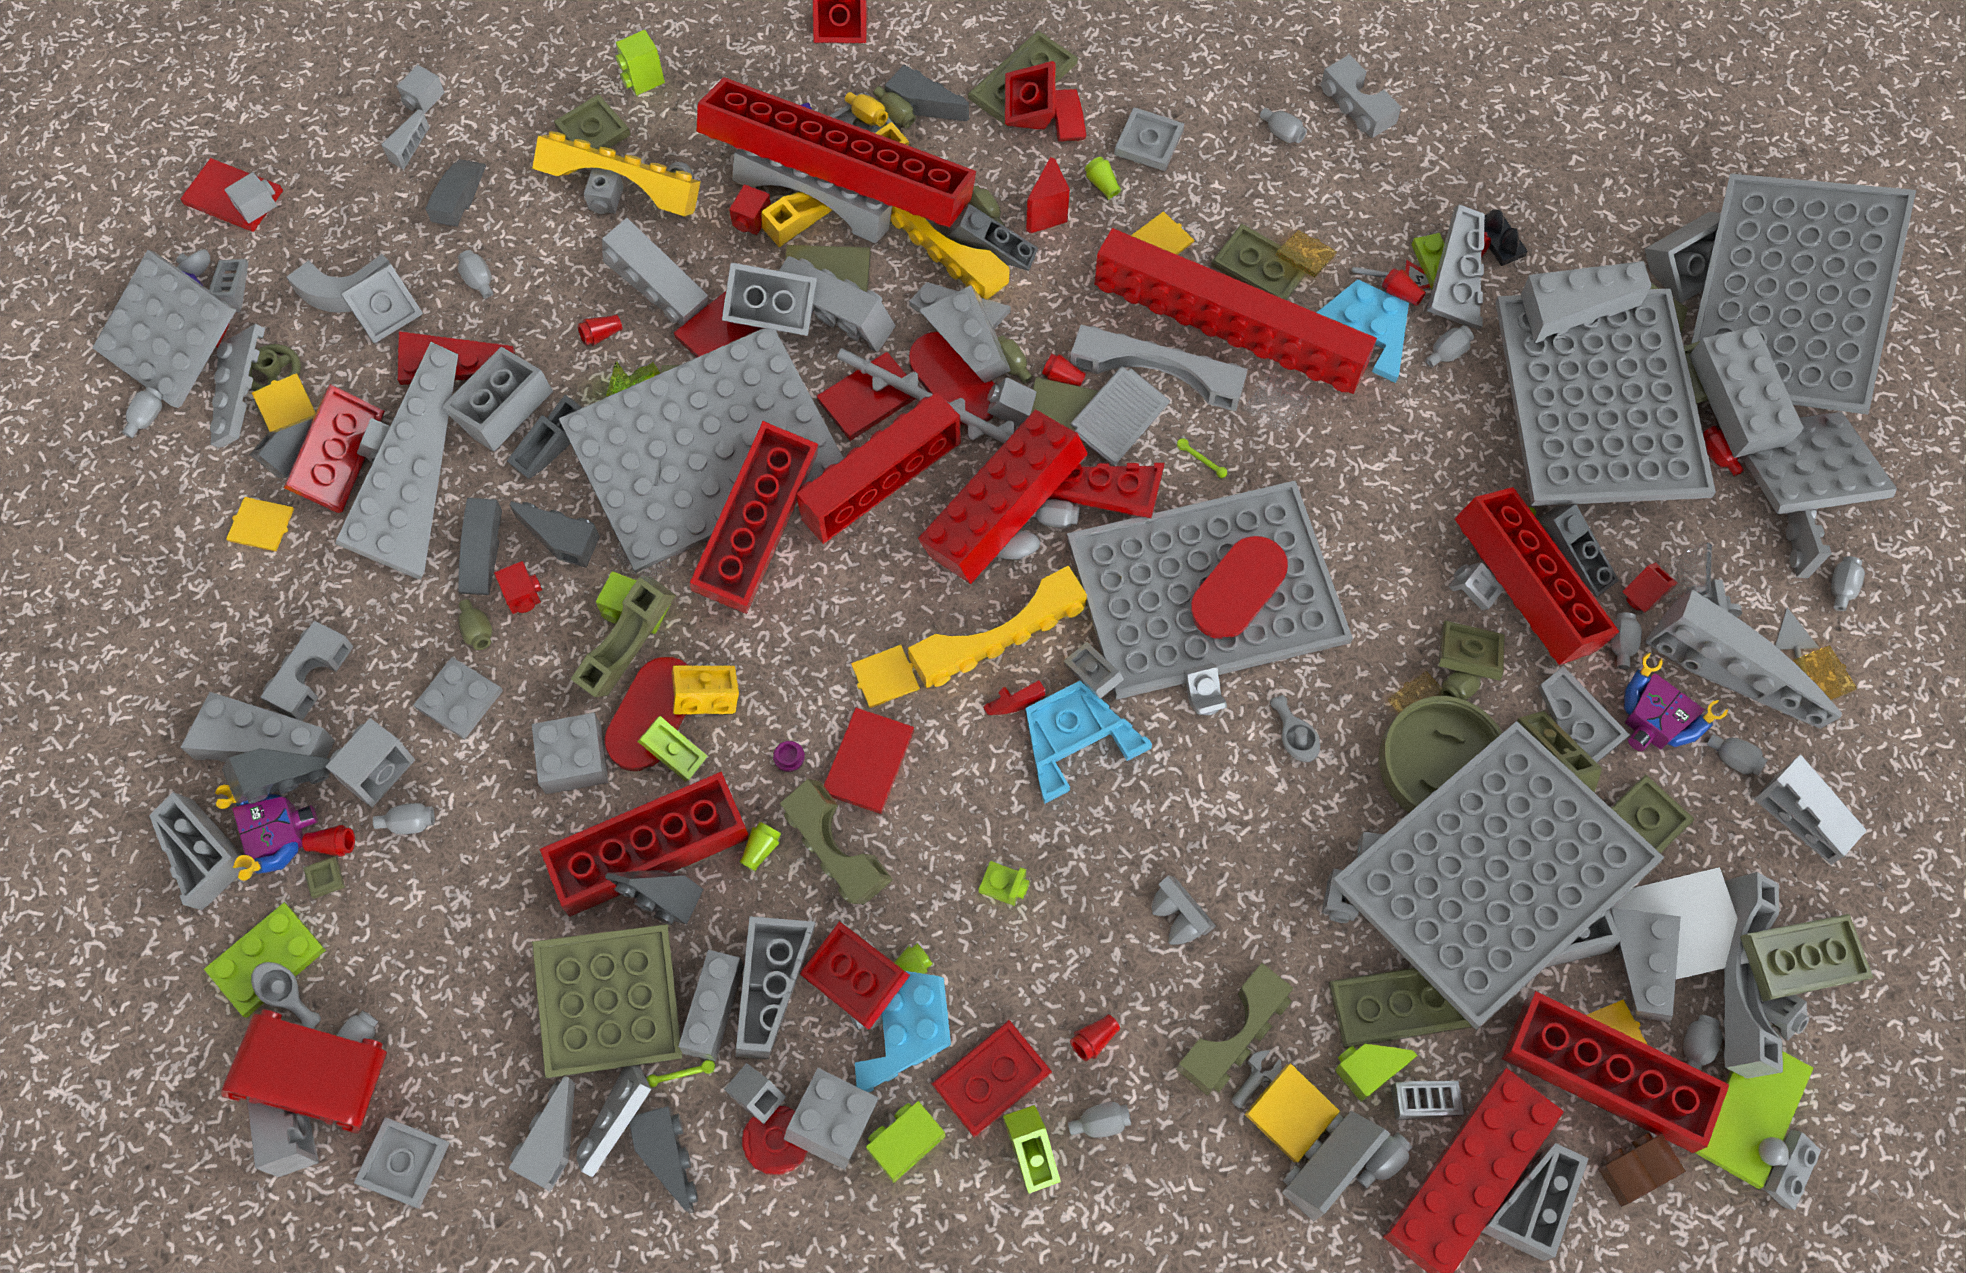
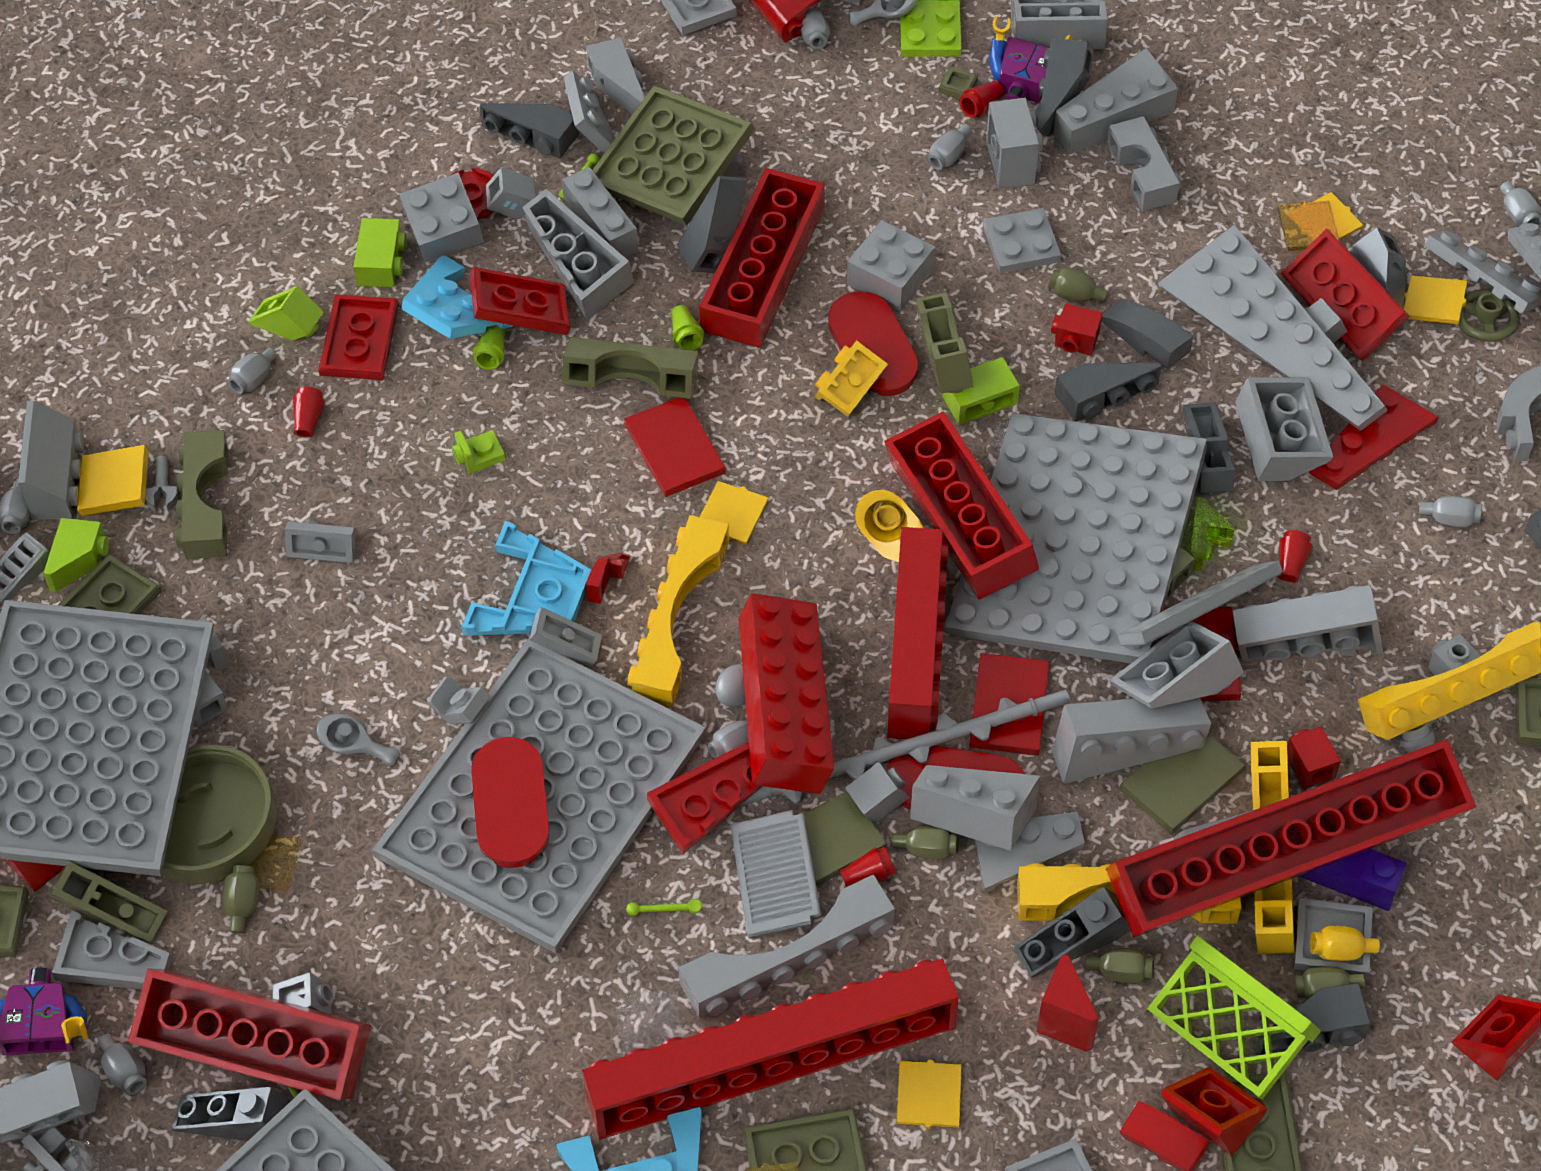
camera: 135 degrees right, 10 degrees down
(277, 526) = (1305, 222): none -> clear yellow piece
(381, 303) = (1475, 413): light grey plate -> none
(672, 748) = (821, 325): lime plate -> none
(701, 326) = (1199, 604): none -> light grey tile
(788, 756) = (736, 398): magenta plate -> none
(803, 560) = (880, 520): none -> yellow piece
(947, 115) = (1259, 999): none -> lime fence
(1102, 176) = (1053, 1100): lime cone -> none
(1472, 650) = (256, 928): olive plate -> none
(1649, 588) = (131, 1125): red brick -> none

